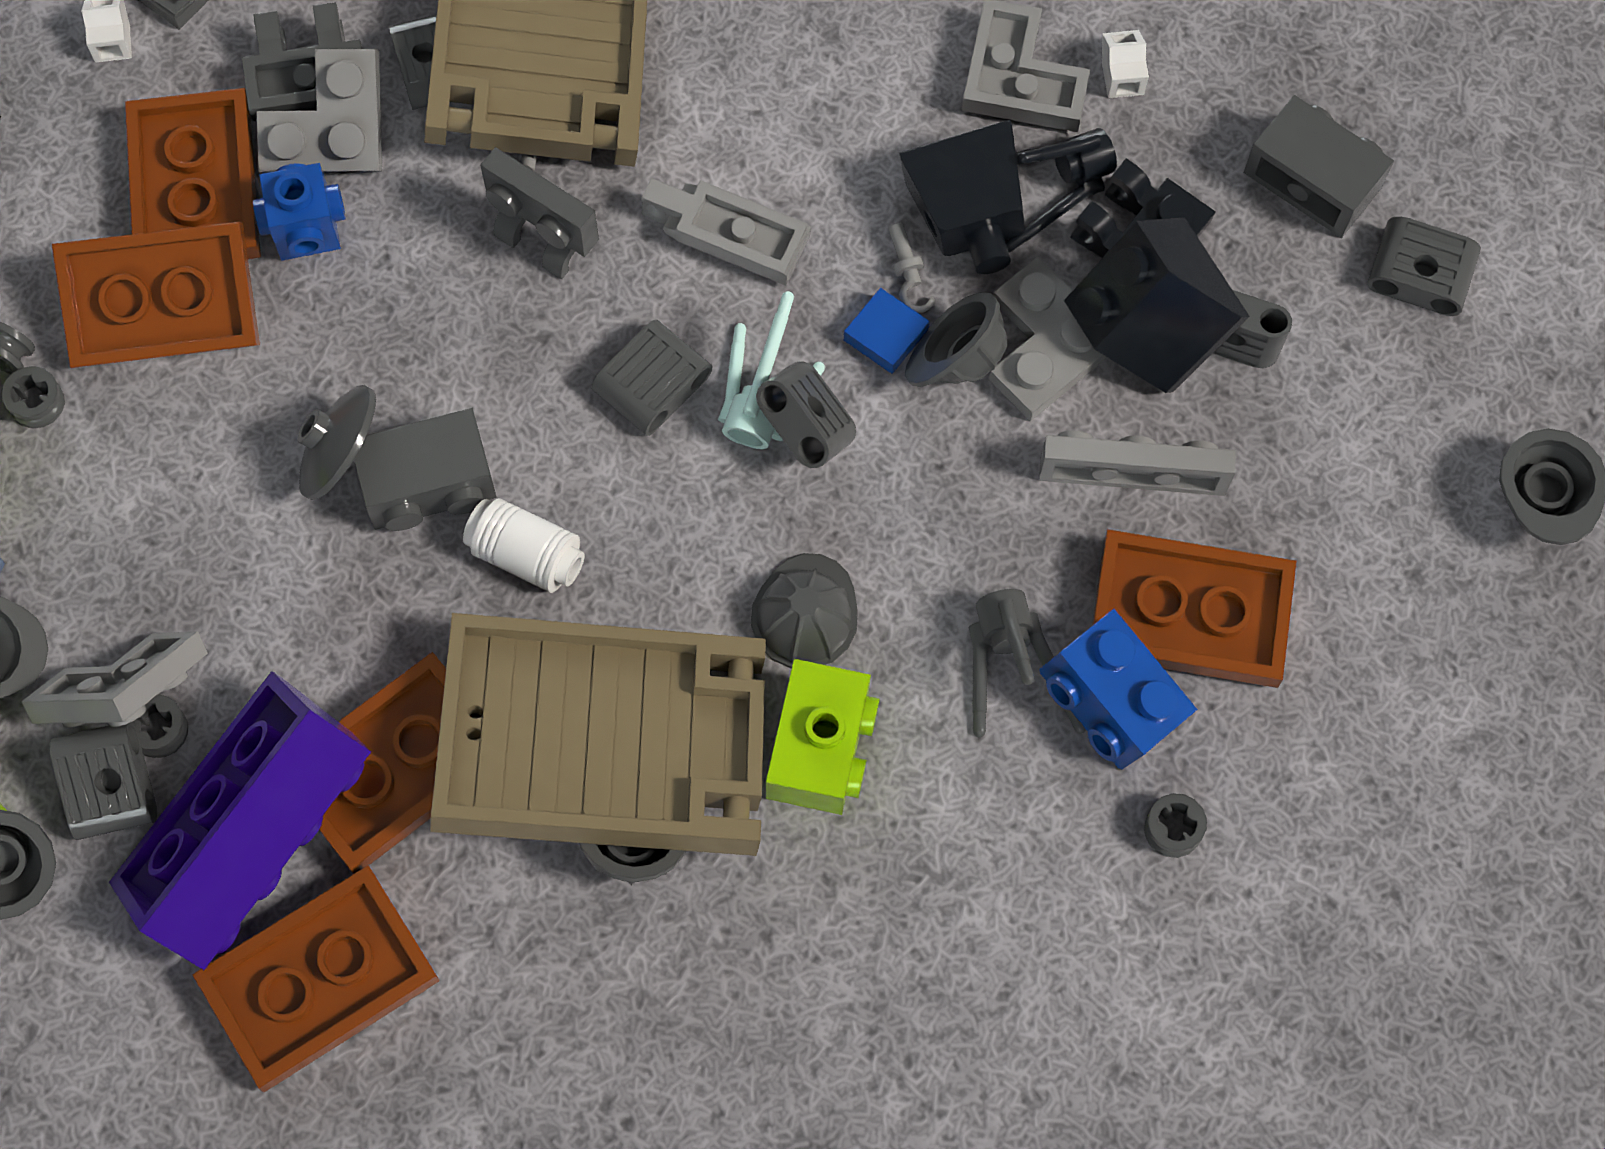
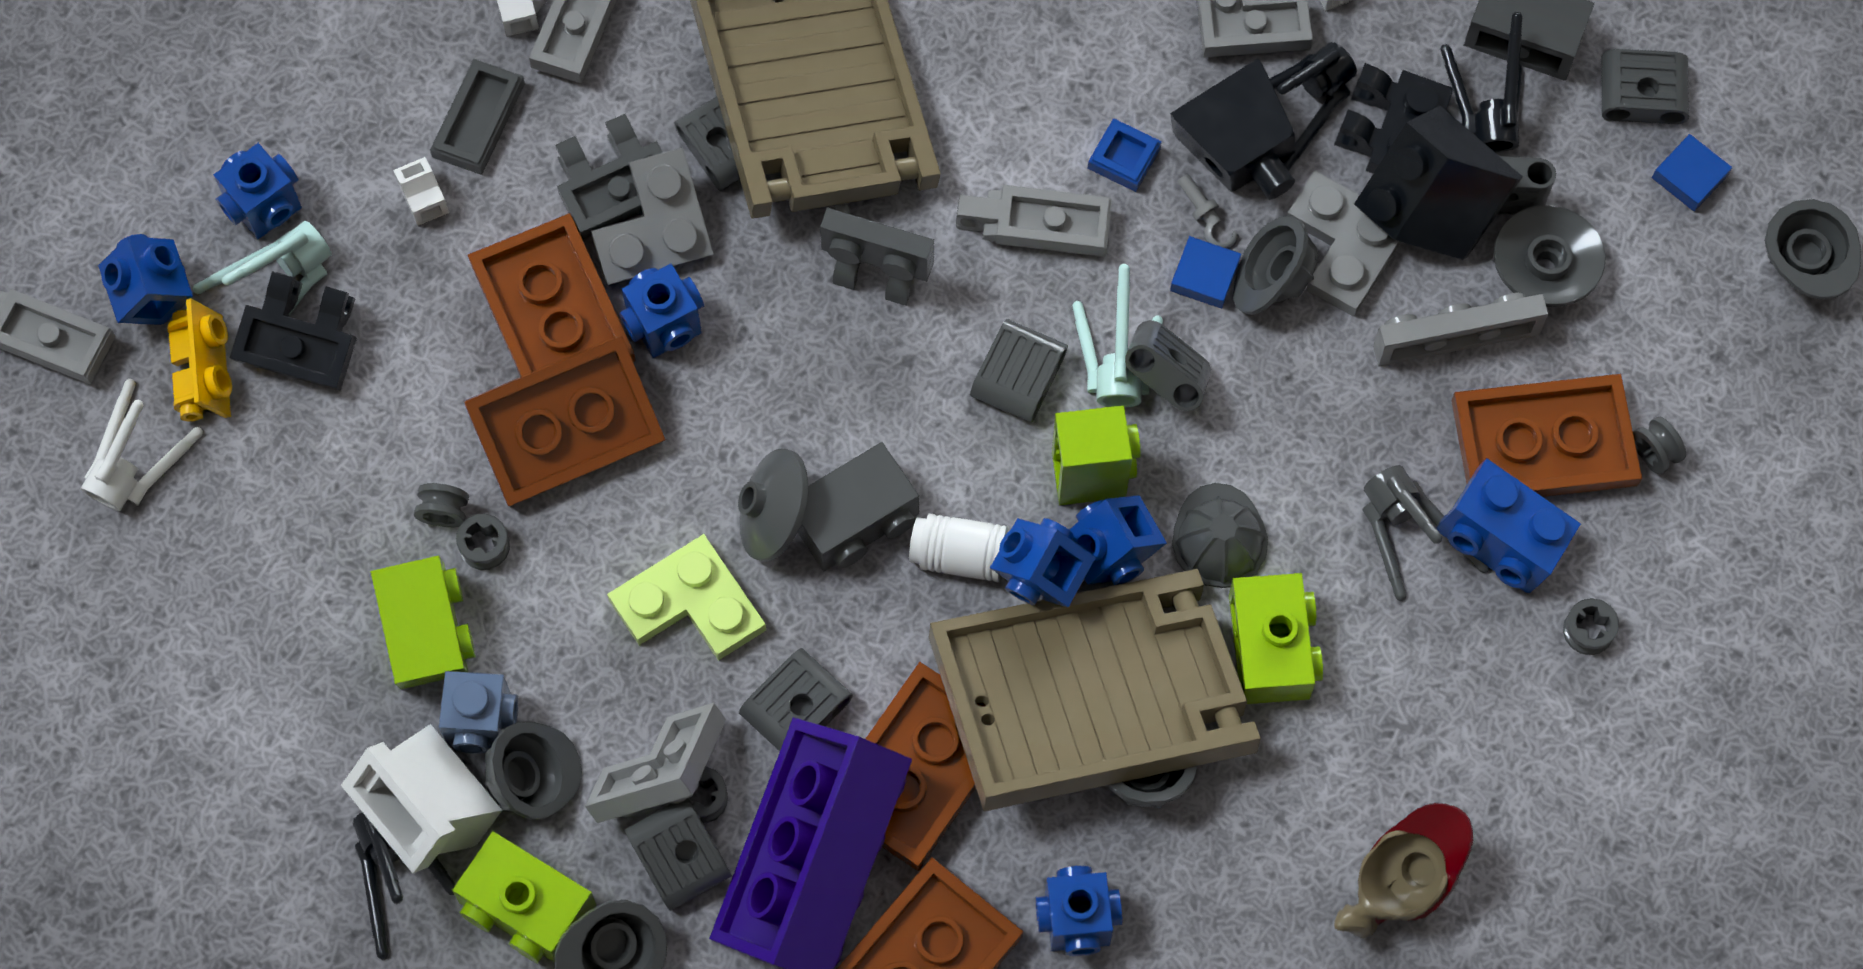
camera: 15 degrees left, 0 degrees up
(226, 502) = (690, 584): none -> yellowish green plate
(295, 647) = (795, 690): none -> dark grey piece
(507, 994) = (1073, 931): none -> blue brick
(590, 581) = (1042, 562): none -> blue brick
(682, 581) = (1119, 536): none -> blue brick
(690, 484) = (1094, 454): none -> lime brick
(843, 187) = (1124, 155): none -> blue tile
(876, 1036) = (1410, 869): none -> dark tan hair
(1252, 256) = (1497, 118): none -> black plant
(1264, 391) = (1551, 235): none -> dark grey dish
(1314, 649) = (1659, 445): none -> dark grey bush
(1446, 370) = (1691, 172): none -> blue tile

